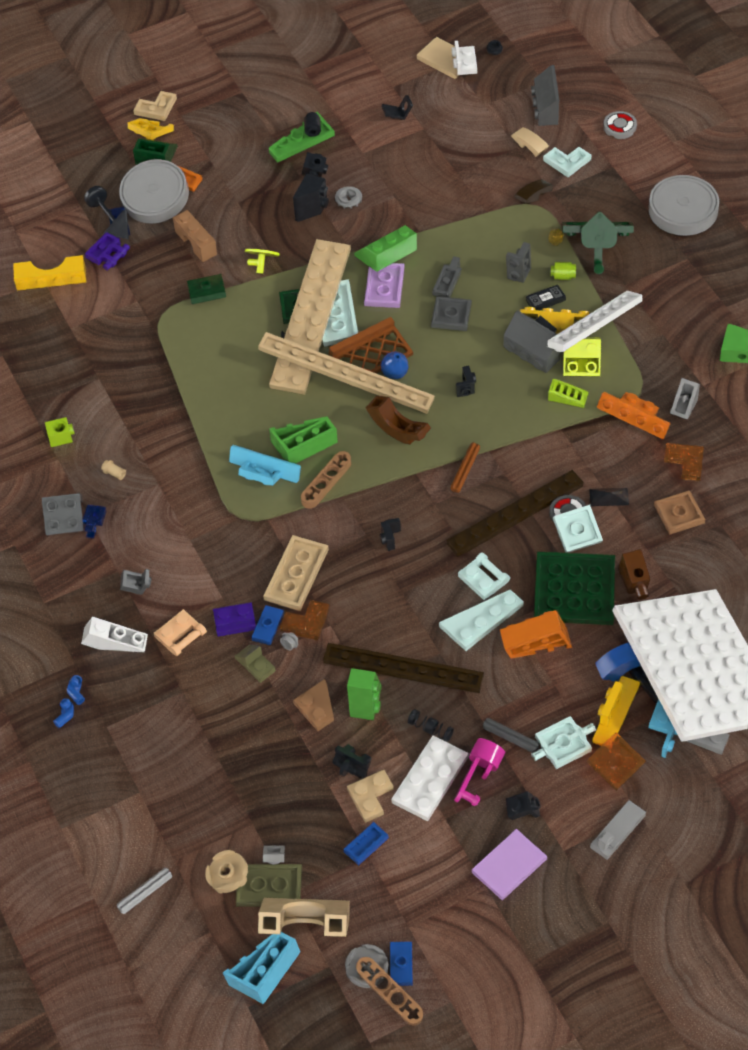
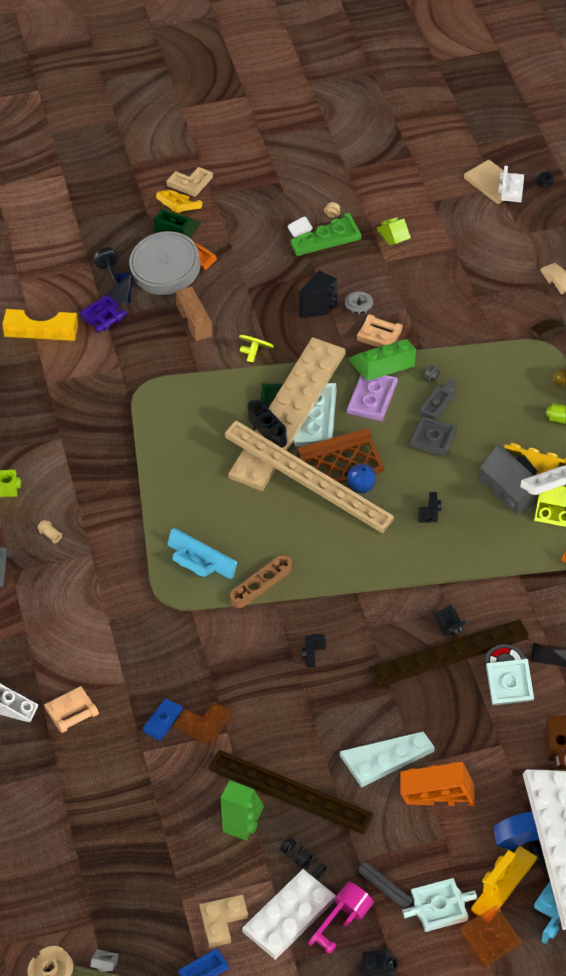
camera: 10 degrees right, 5 degrees down
(93, 517) = (15, 575): clear blue plate -> none
(134, 581) = (39, 648): dark grey bracket -> none
(206, 289) = (191, 368): dark green plate -> none
(234, 619) = (130, 706): dark purple plate -> none
(255, 662) = (140, 756): olive slope -> none
(274, 133) = (300, 227): none -> white slope
(289, 641) = (180, 740): light grey plate -> none
(295, 329) = (267, 423): none -> black beam
(296, 573) = (205, 671): tan plate -> none
(300, 111) = (332, 210): none -> tan plate
(304, 439) = (249, 536): bright green wedge -> none
(312, 124) = (339, 224): black brick -> none
(314, 165) = (332, 264): black brick -> none
(316, 705) = (190, 813): medium nougat wing -> none
(351, 763) = (209, 881): black hips -> none
(364, 122) = (394, 231): none -> lime slope
(374, 227) = (376, 336): none -> light nougat plate
(394, 423) = (345, 536): reddish brown arch -> none
(398, 112) = (431, 226): black bracket -> none
(435, 253) = (432, 373): none -> dark grey plate
(465, 467) = (409, 594): dark orange axle -> none
(479, 580) = (394, 717): light aqua plate -> none
(508, 483) = (449, 621): none -> black bracket
(519, 264) = (515, 398): dark grey bracket -> none
(546, 298) = (535, 438): tile -> none
(559, 397) = (529, 531): lime slope -> none
(576, 587) = (493, 742): dark green plate -> none

